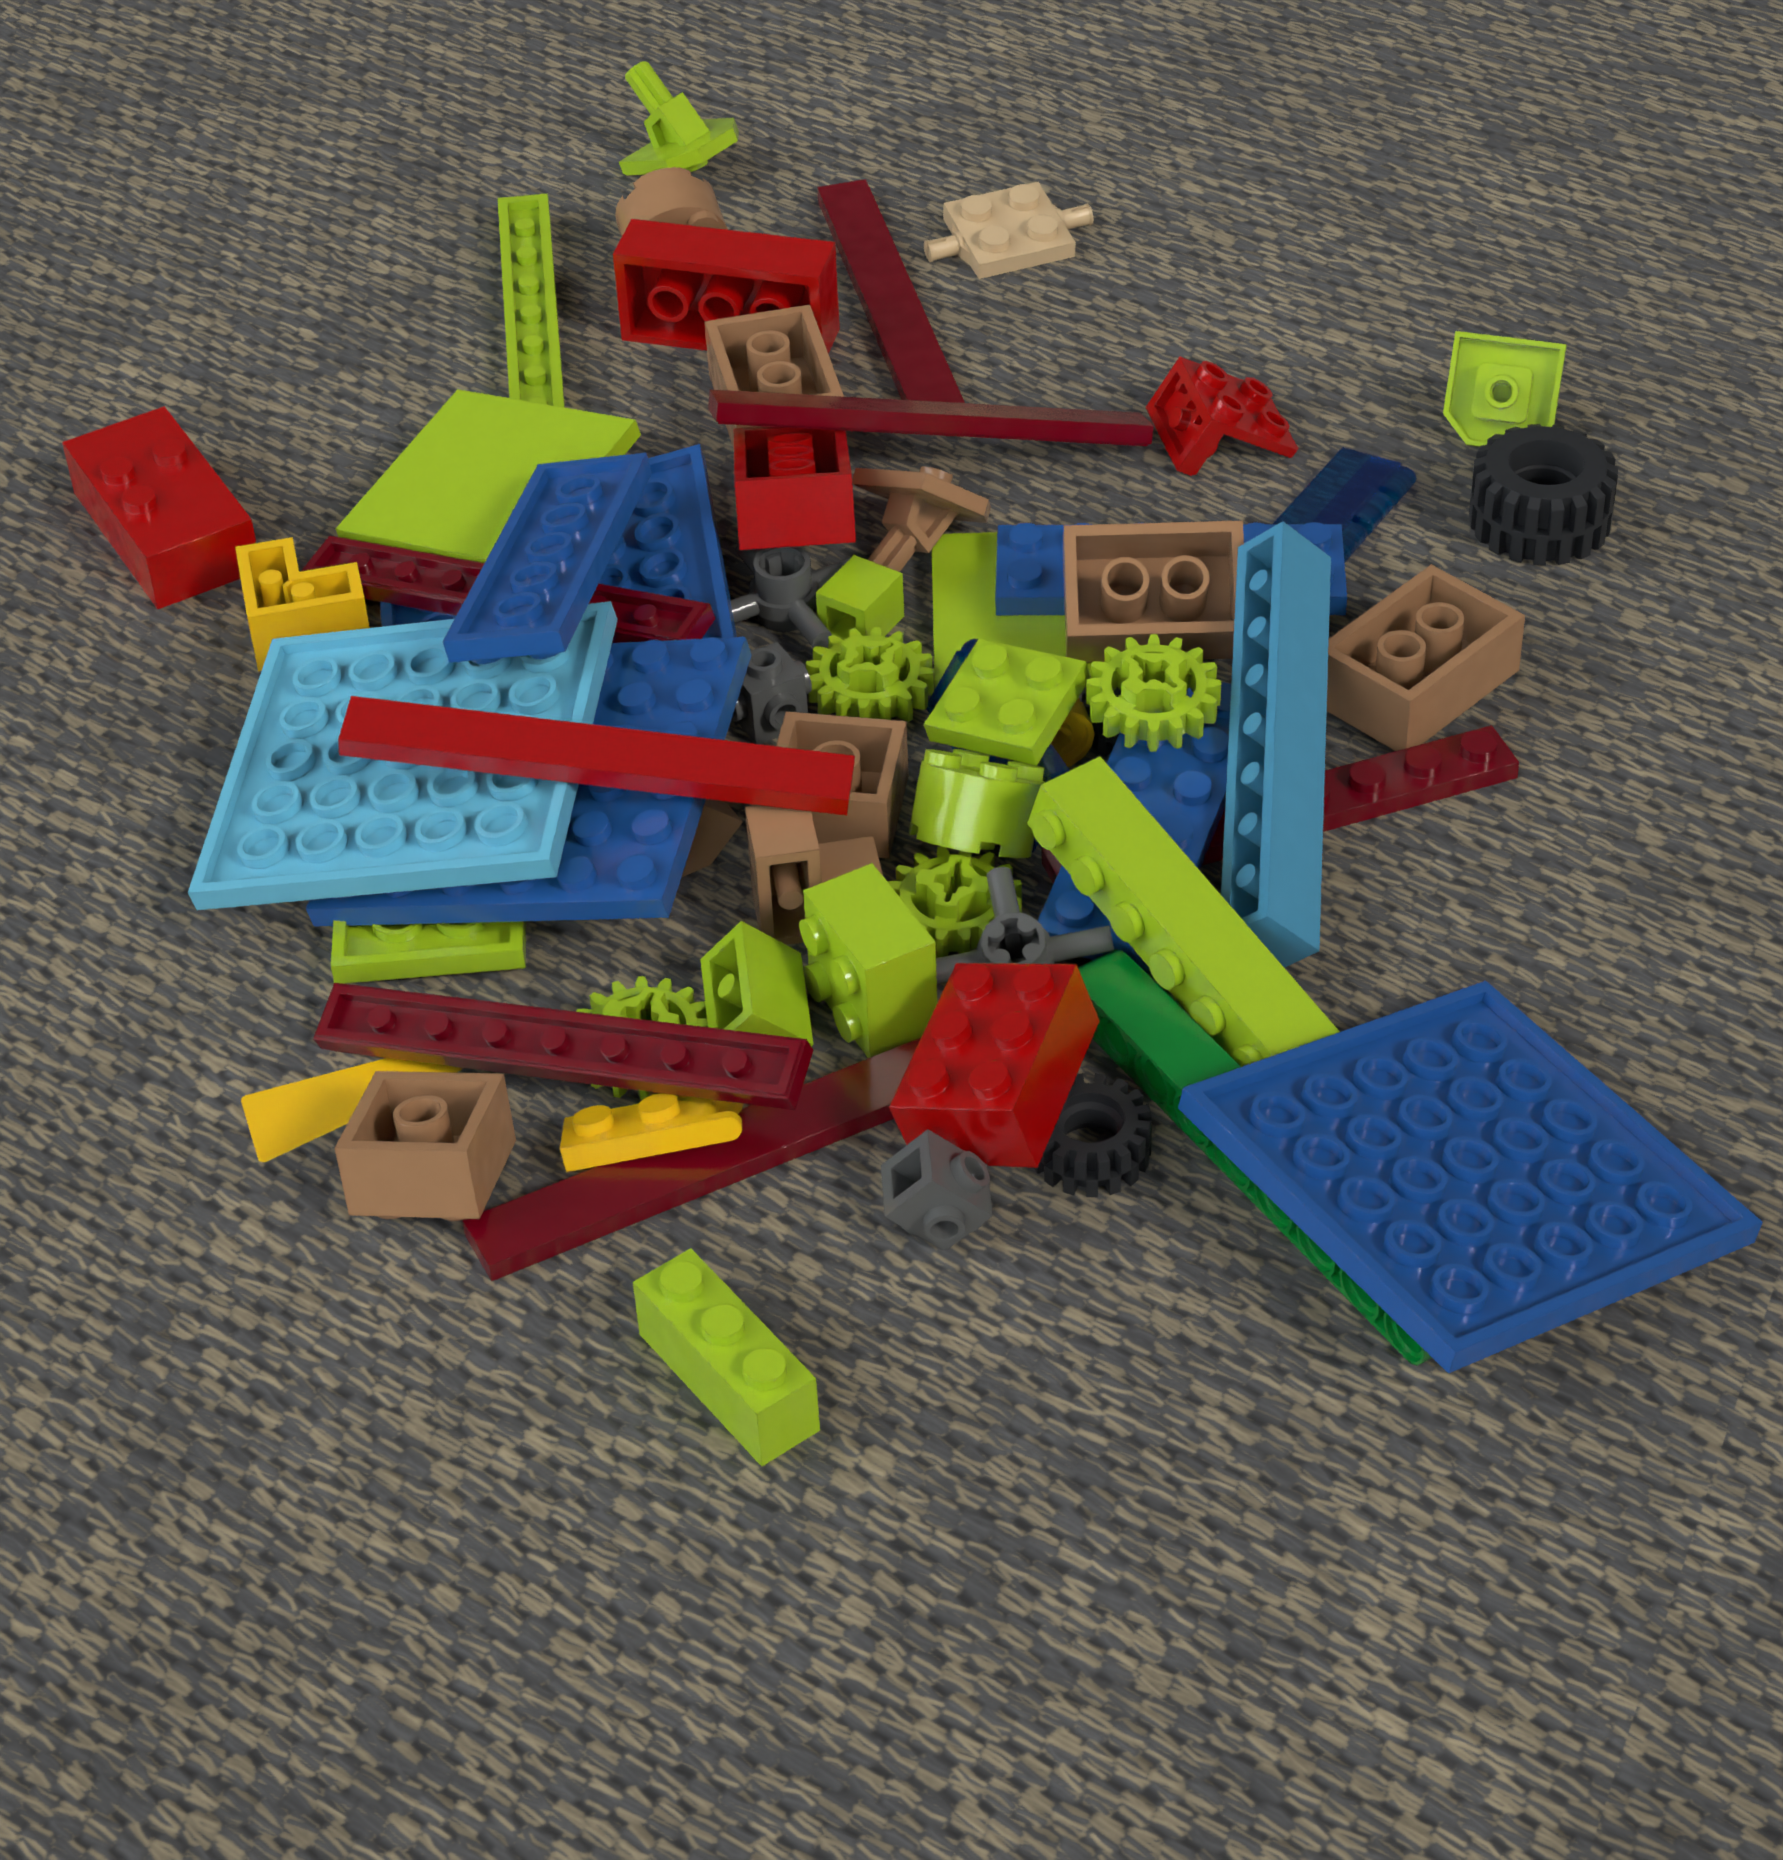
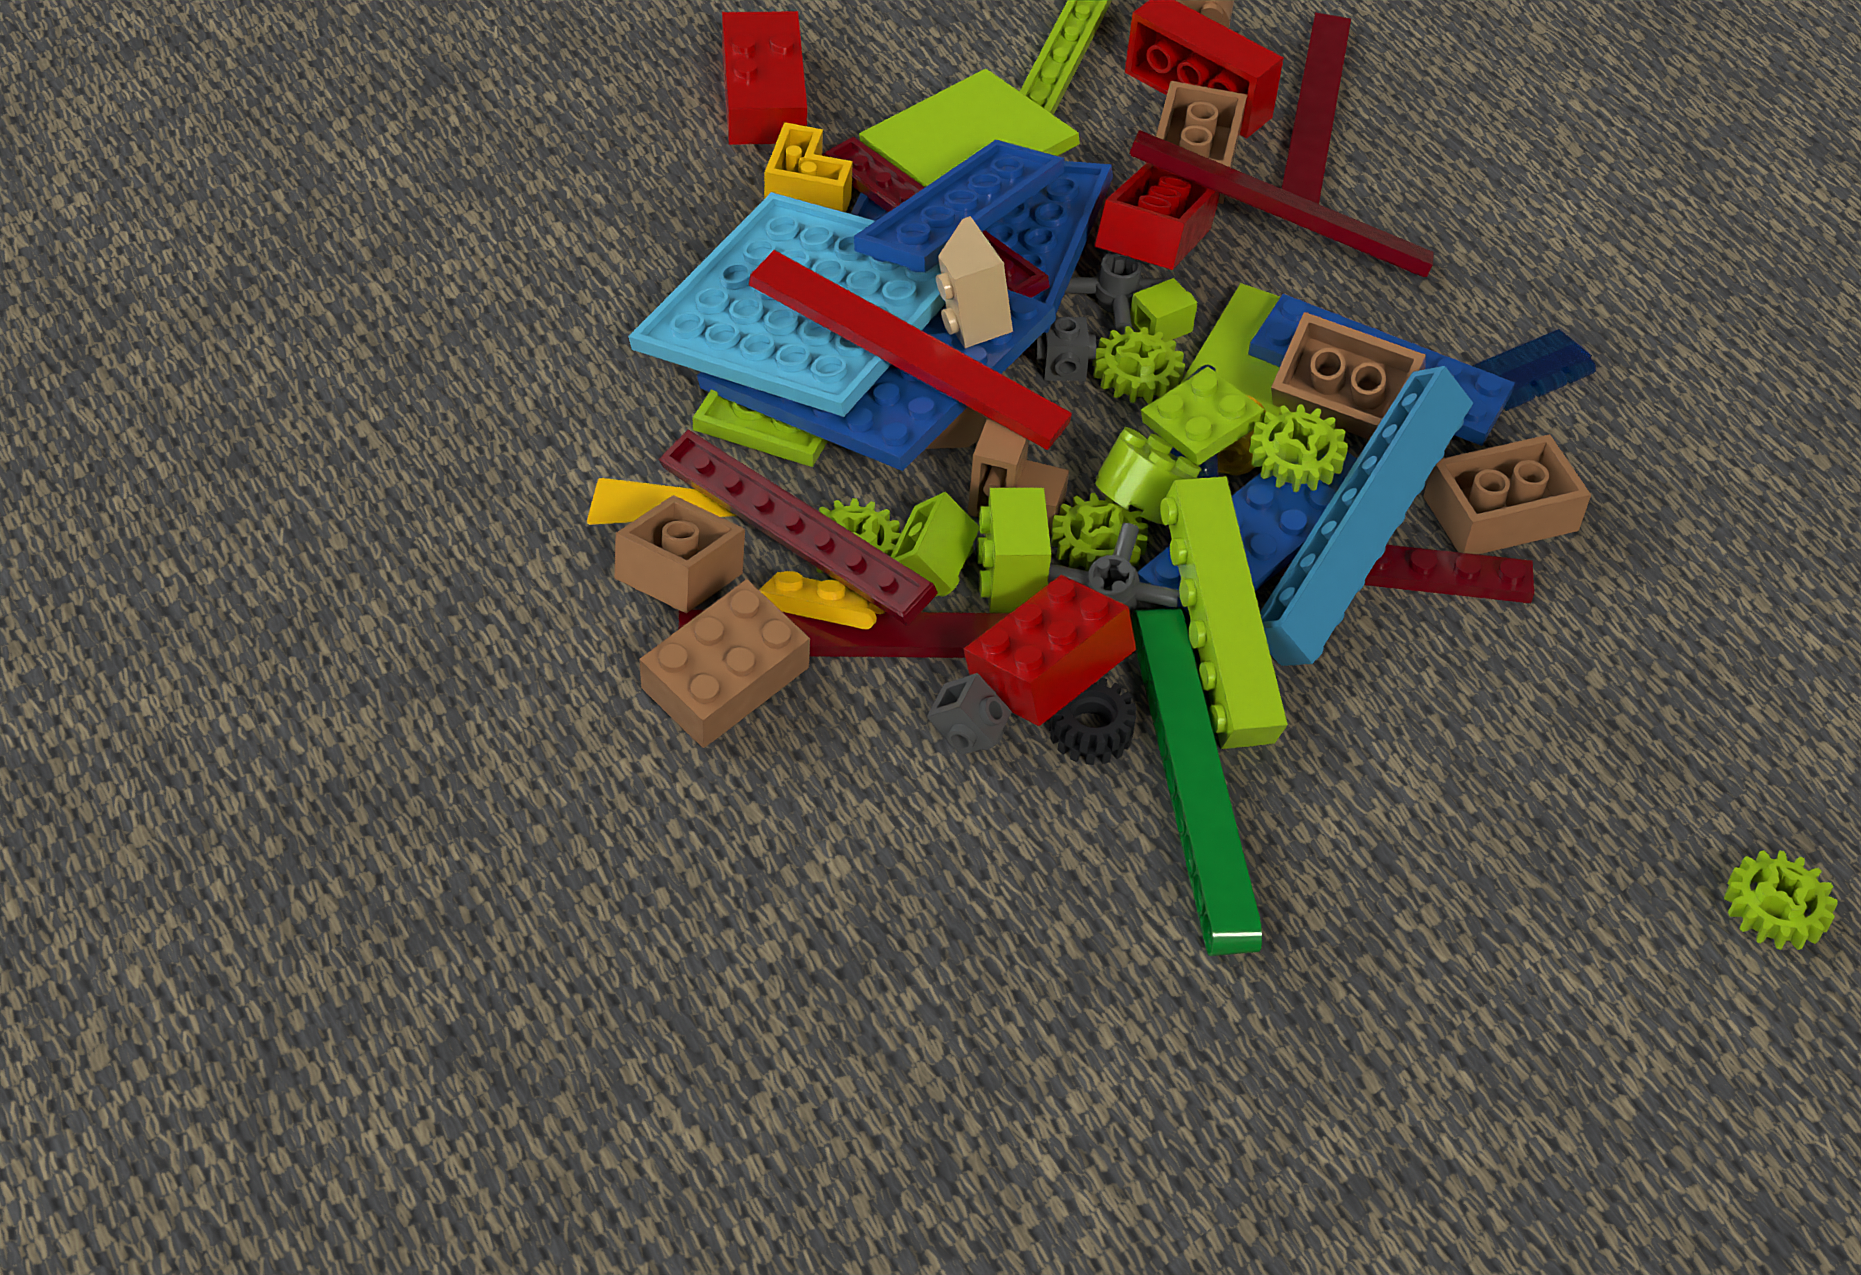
camera: 20 degrees right, 5 degrees up
(568, 1260) = (724, 663): none -> medium nougat brick
(644, 644) = (973, 287): none -> tan slope
(727, 1356) = (781, 762): lime brick -> none
(878, 772) = (1093, 427): medium nougat brick -> none
(917, 510) = (1234, 265): medium nougat piece -> none
(1008, 230) = (1426, 90): tan plate -> none
(1204, 403) = (1484, 264): red bracket -> none
(1468, 1172) = (1312, 848): blue plate -> none
(1501, 385) = (1689, 331): lime piece -> none
(1543, 494) = (1670, 415): black tyre -> none

